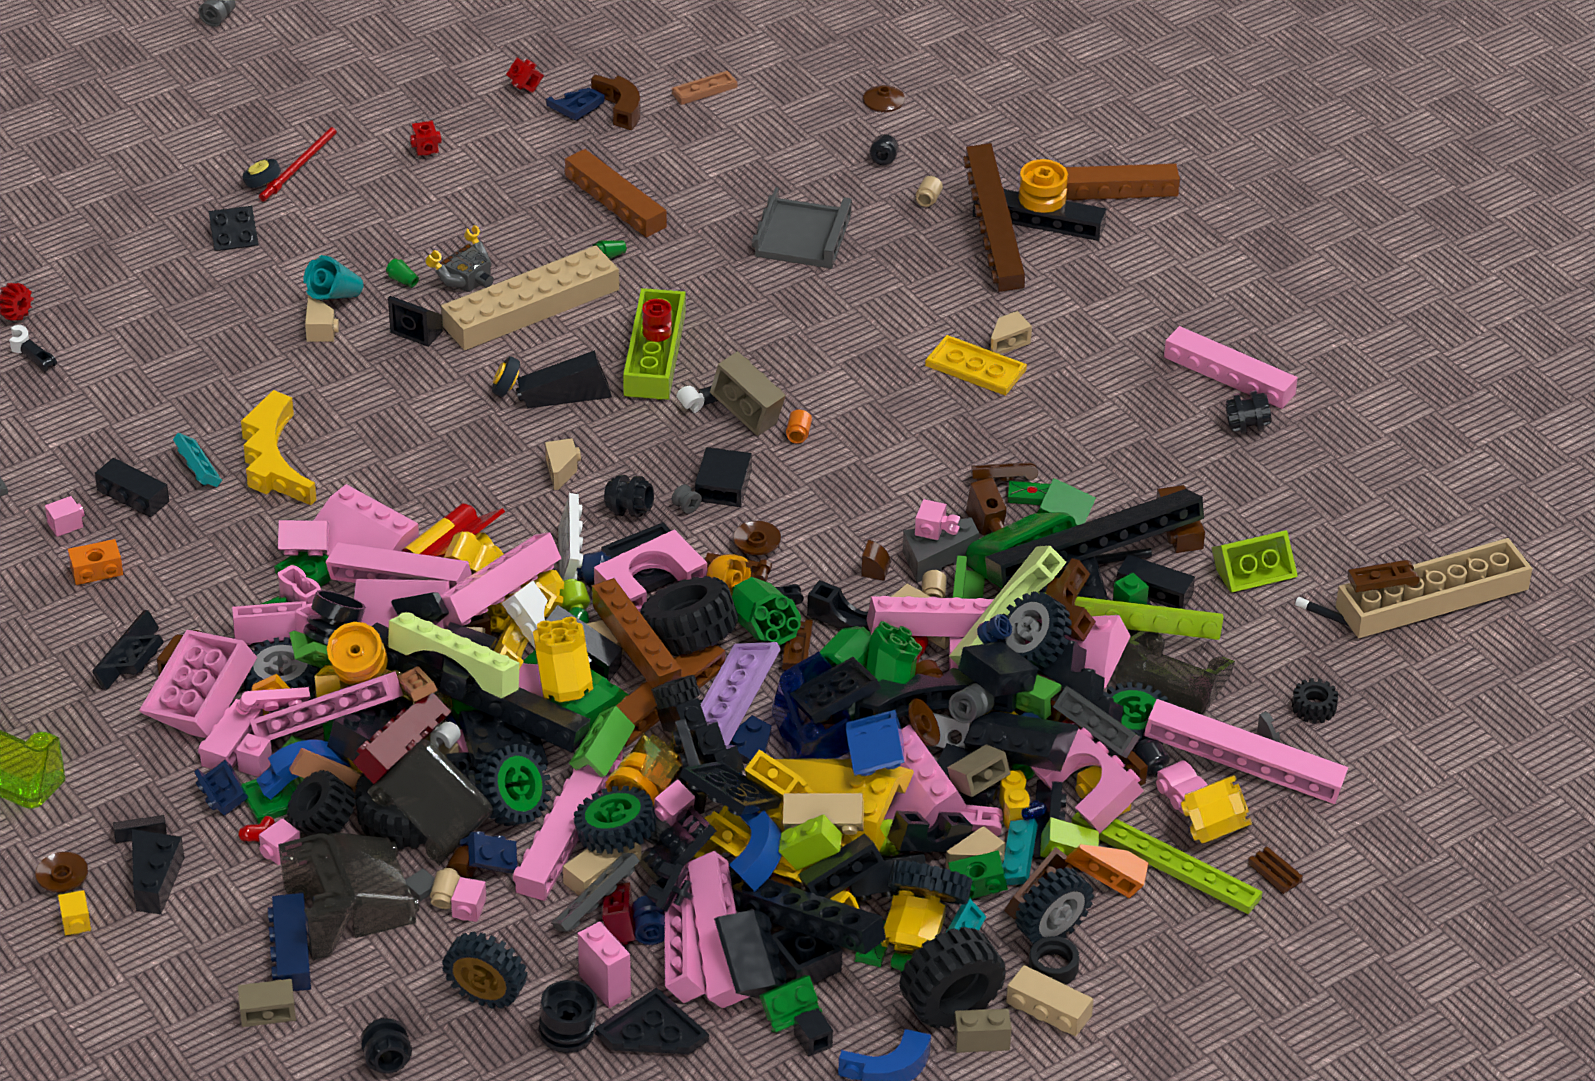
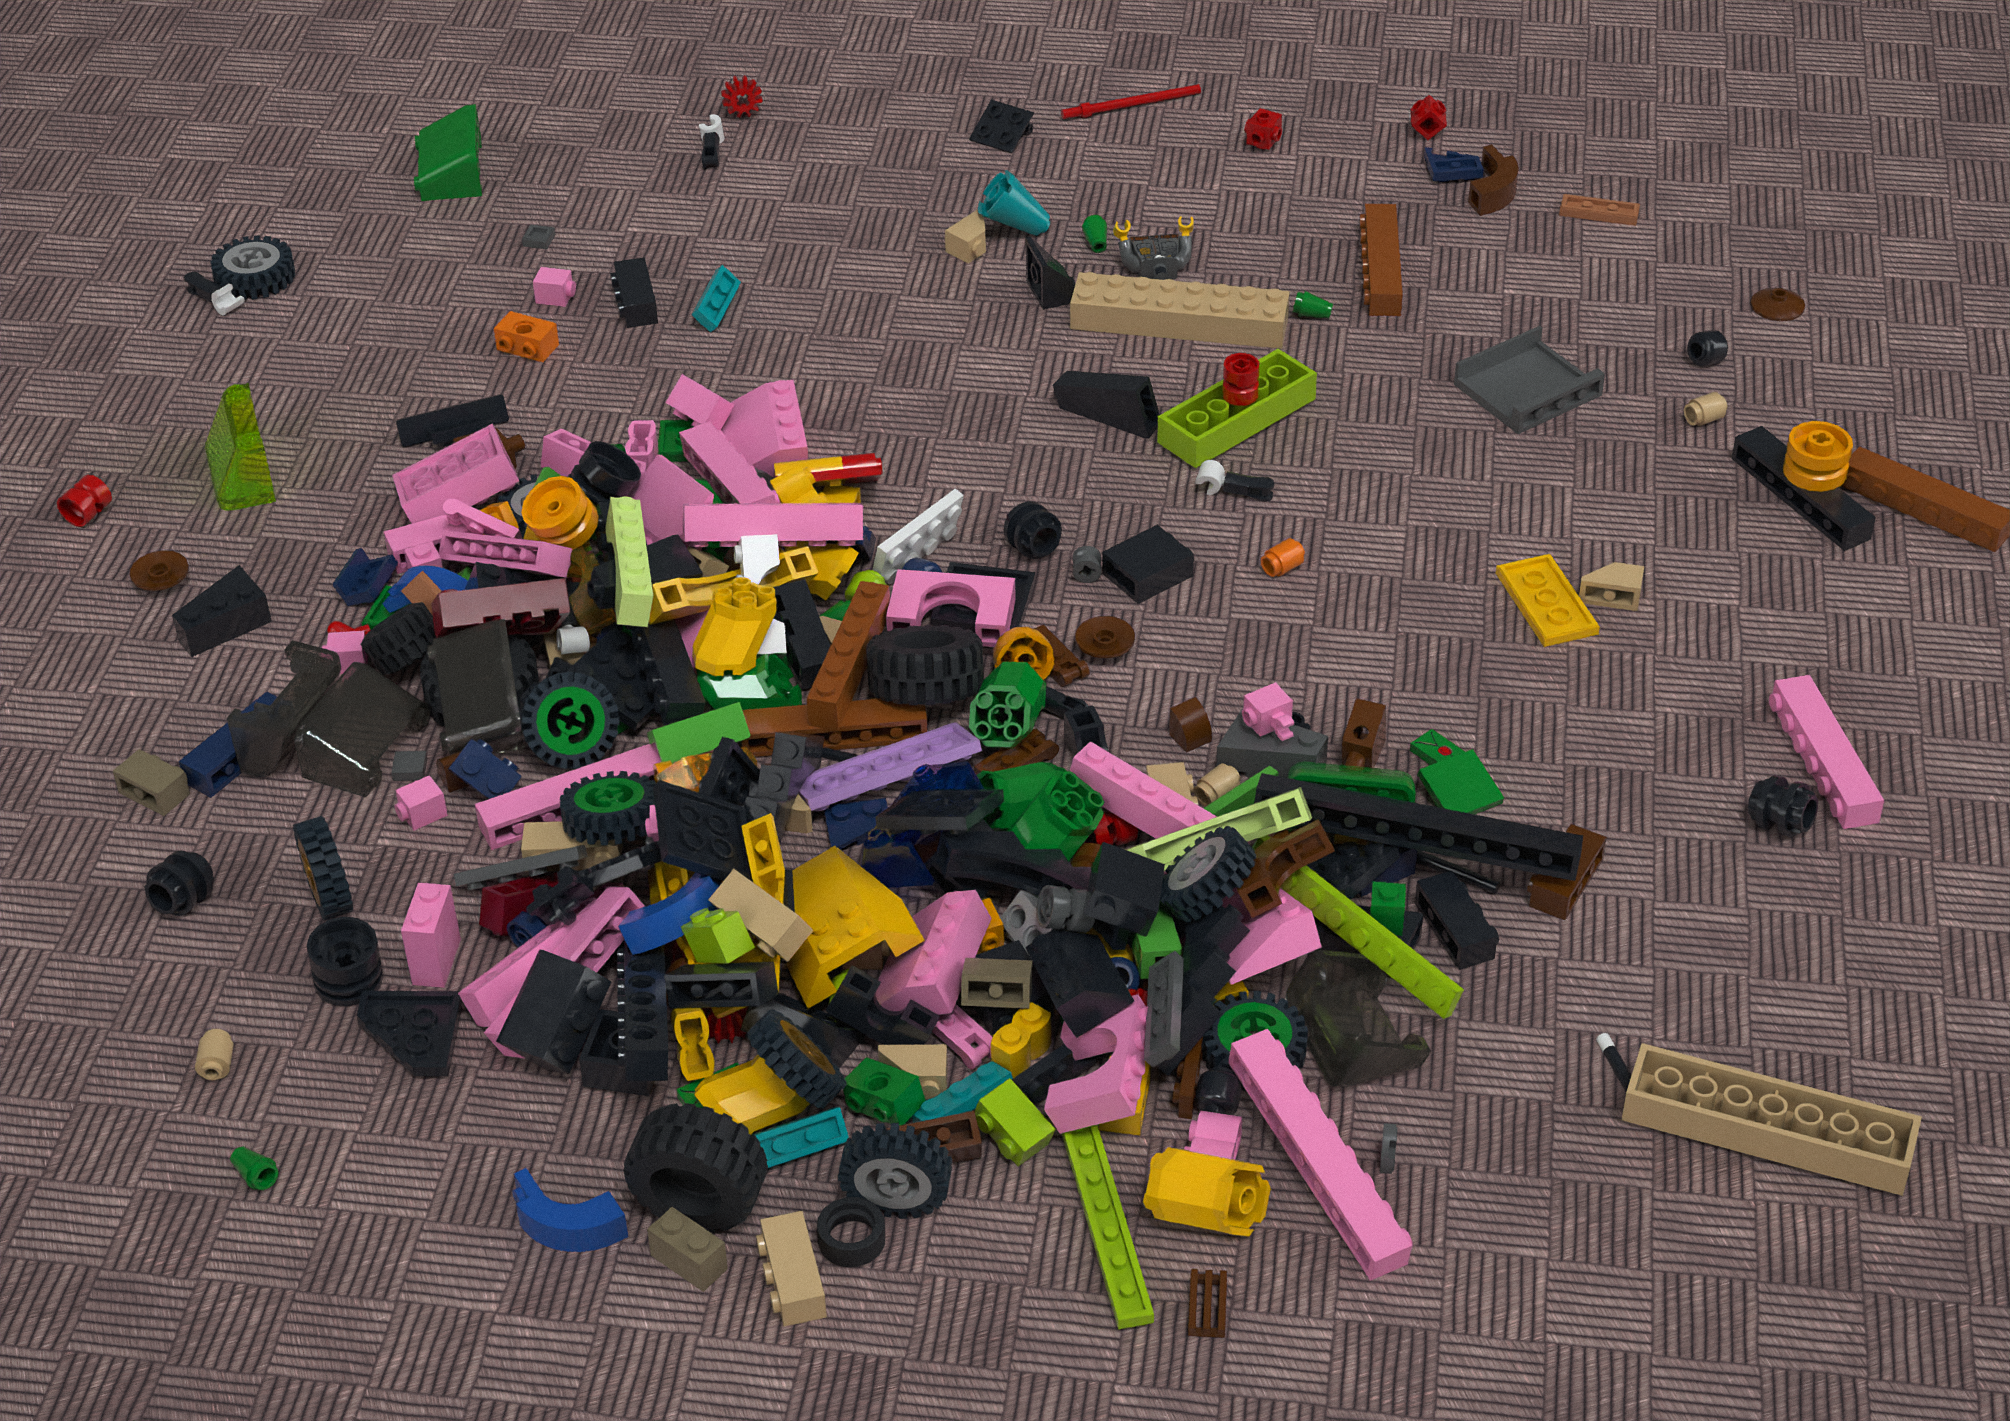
camera: 45 degrees right, 0 degrees up
(74, 912) = (123, 610): yellow brick -> none
(123, 829) = (269, 574): black slope -> none
(261, 173) = (1083, 92): black wheel -> none
(267, 466) = (780, 318): yellow arch -> none
(416, 683) = (567, 568): nougat tile -> none
(424, 606) = (663, 513): black wing -> none
(444, 887) = (414, 772): tan brick -> none
(505, 376) = (1059, 362): black wheel -> none
(561, 461) = (1016, 468): tan slope -> none
(676, 691) = (806, 722): black tyre -> none
(747, 393) = (1256, 495): dark tan brick -> none
(789, 1001) = (550, 1091): green plate -> none
(813, 1032) = (538, 1134): black brick -> none
(875, 743) = (900, 882): blue slope -> none
(924, 722) = (1010, 898): reddish brown dish -> none
(994, 217) = (1731, 463): reddish brown brick -> none
(995, 629) = (1159, 849): dark blue wheel -> none
(1004, 471) = (1437, 716): reddish brown plate -> none
(1034, 811) = (1014, 1063): clear blue arm -> none
(1111, 866) = (1021, 1176): orange slope -> none
(1255, 561) = (1597, 965): lime slope -> none
(1313, 710) = (1483, 1138): black tyre -> none
(1383, 576) = (1701, 1062): reddish brown plate -> none

